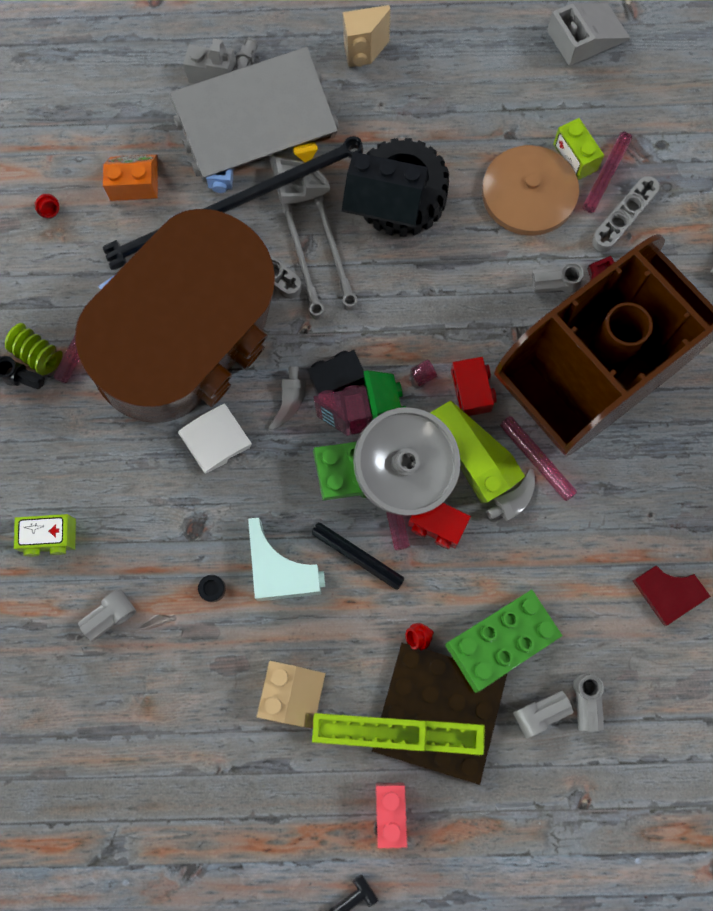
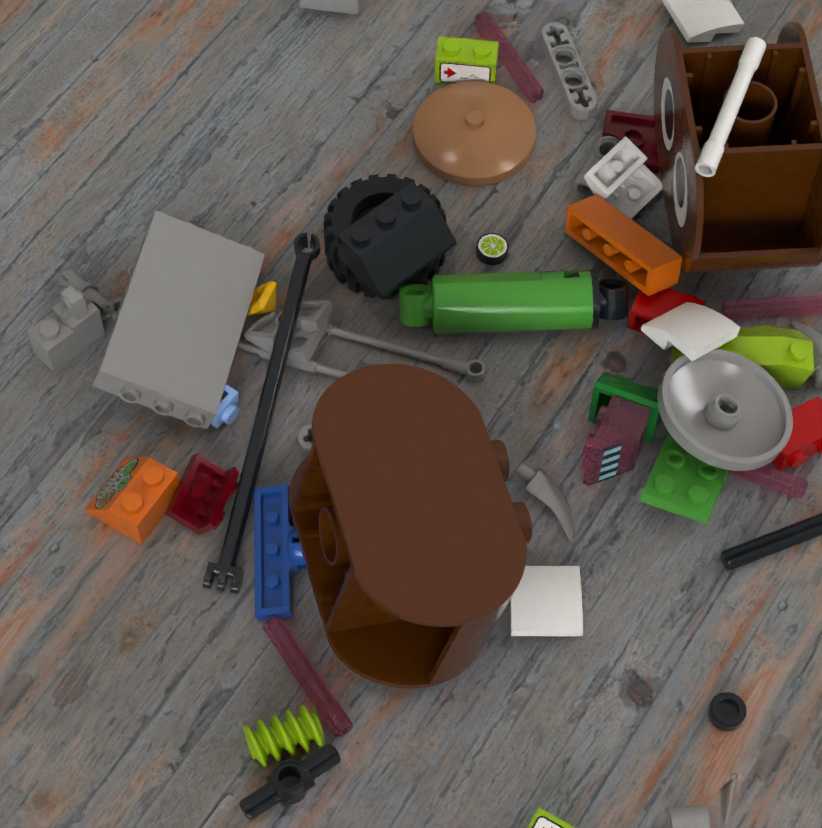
camera: 60 degrees left, 15 degrees down
(47, 206) = (94, 614): red plate -> none
(154, 207) = (202, 495): none -> dark red bracket
(277, 576) = (751, 630): light aqua arch -> none
(337, 373) = (560, 433): black brick -> none
(365, 34) = (167, 162): tan slope -> none
(409, 291) = (514, 302): none -> bright green piece
(423, 372) = (615, 349): clear pink hose -> none
(448, 255) = (492, 249): none -> tile
(454, 406) = (691, 330): none -> white slope
(499, 325) = (623, 244): none -> orange brick
(548, 291) = (624, 179): none -> white slope
(655, 301) = (714, 147): none -> white piece

